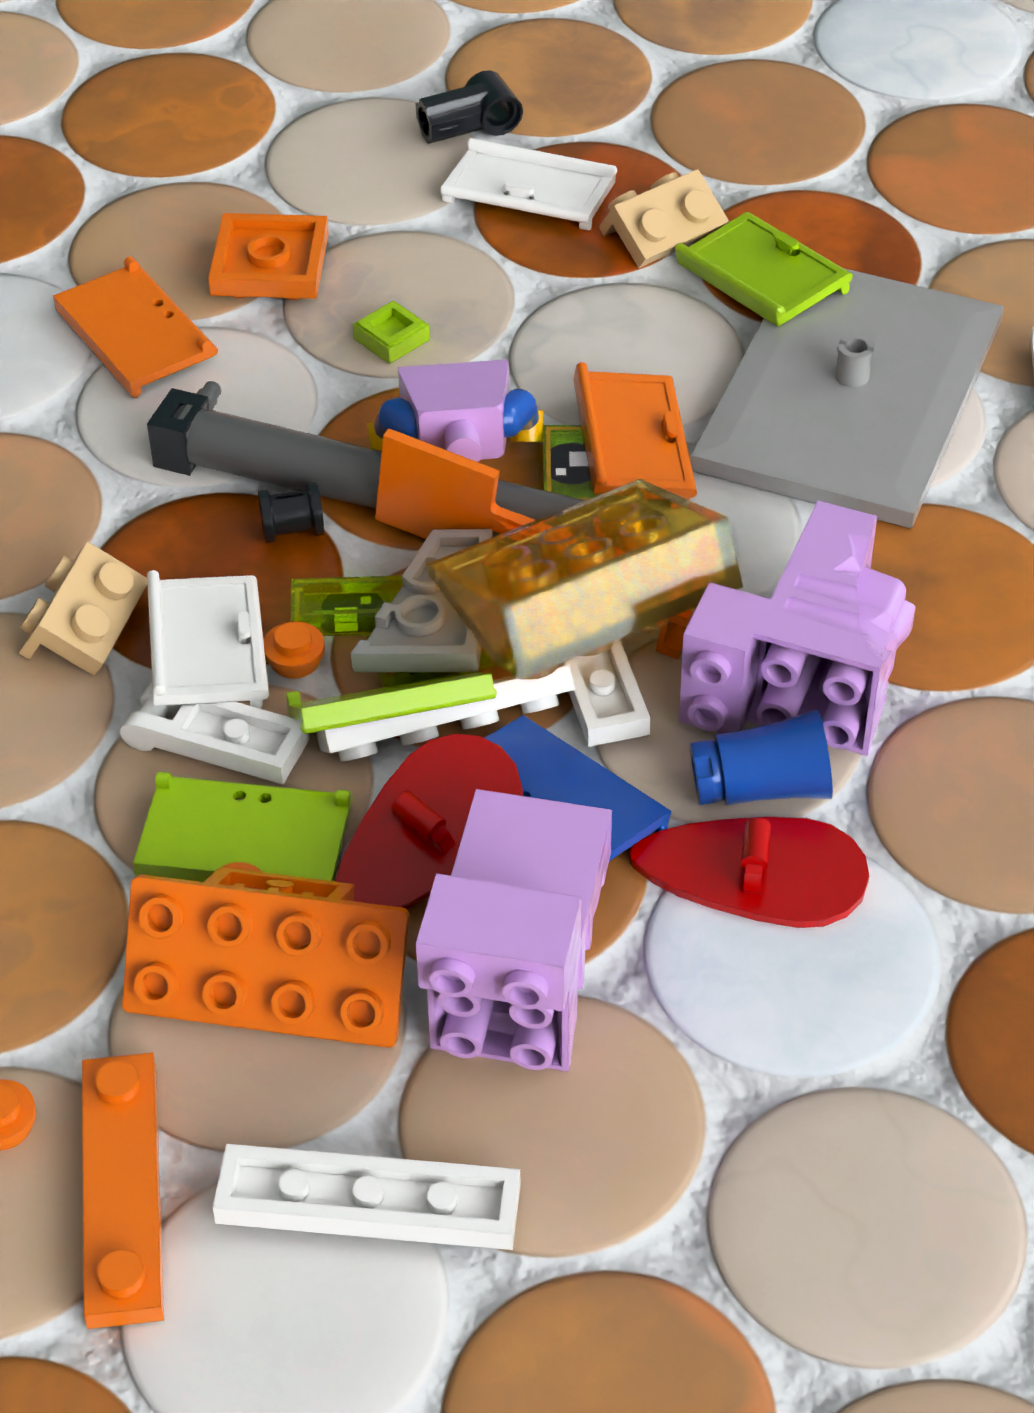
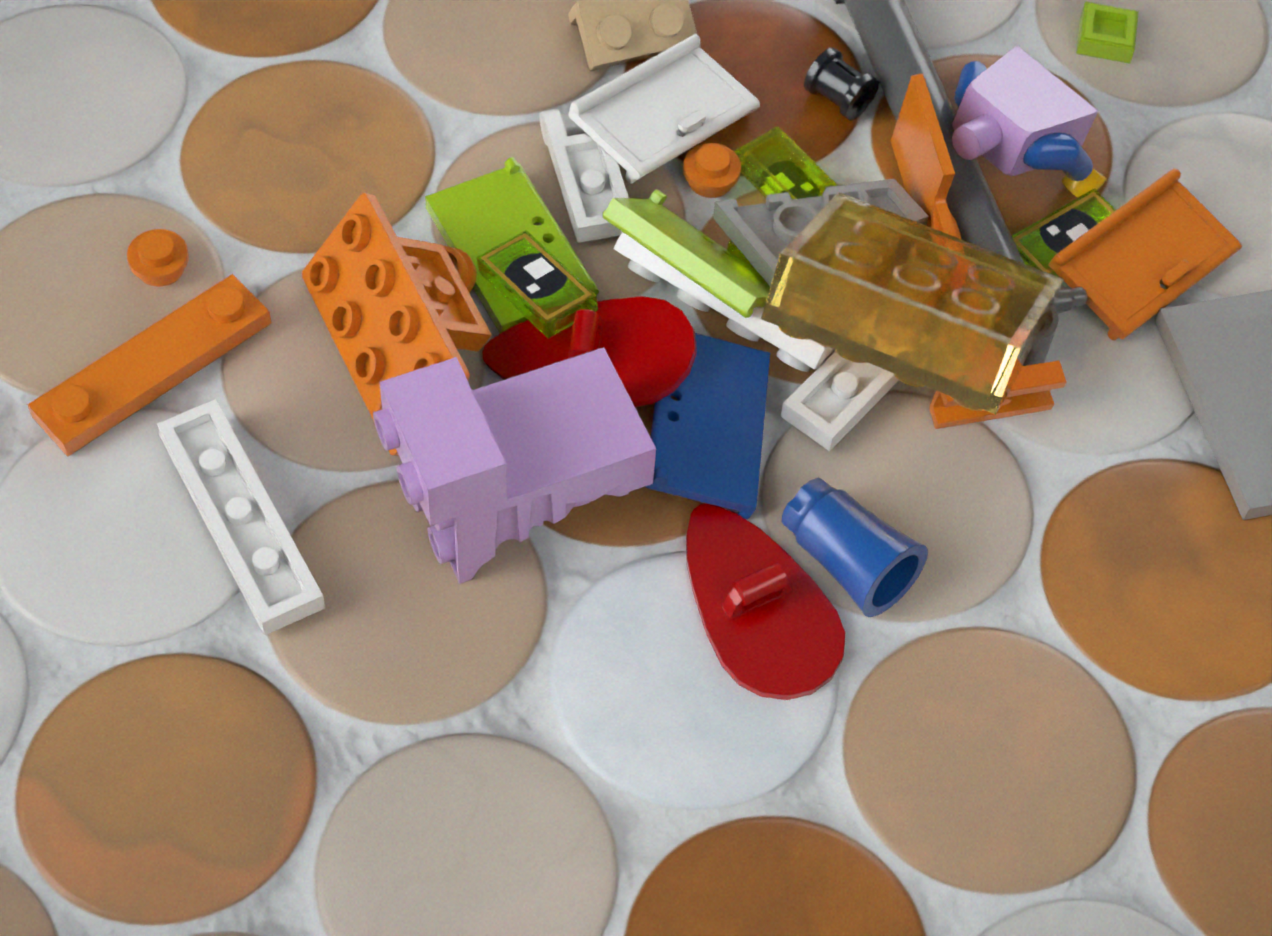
camera: 50 degrees right, 10 degrees up
(321, 825) = (536, 283): none -> tile
(814, 645) = (1006, 503): lavender brick -> none

